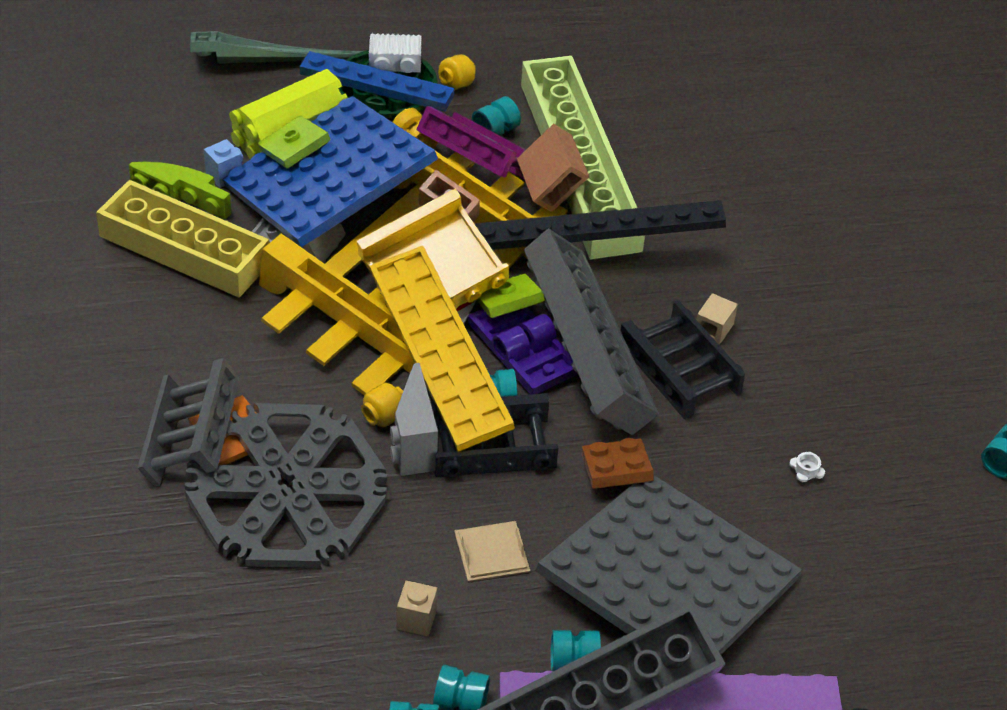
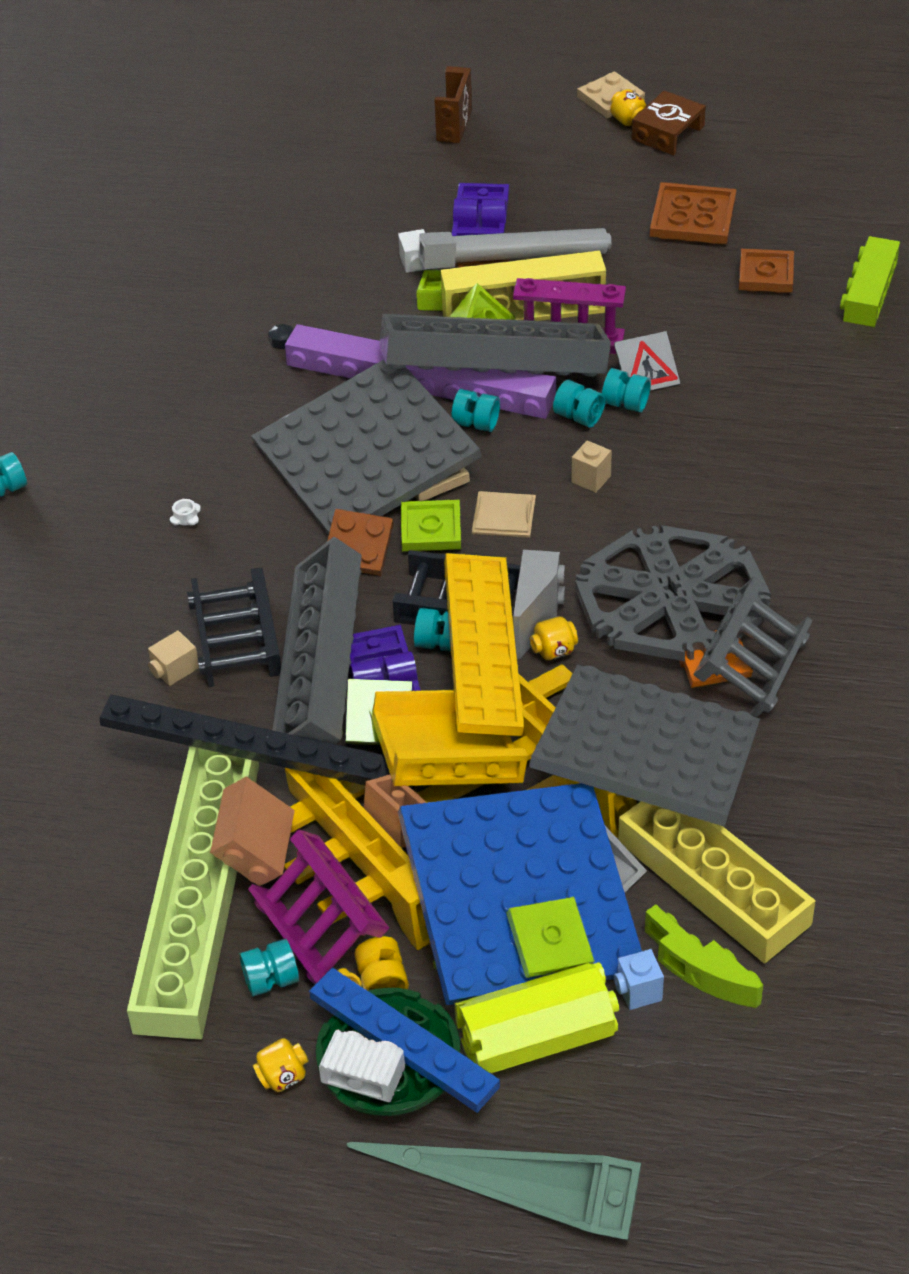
camera: 155 degrees left, 0 degrees up
(263, 296) = (647, 744): none -> dark grey plate
(555, 505) = (430, 525): none -> lime plate

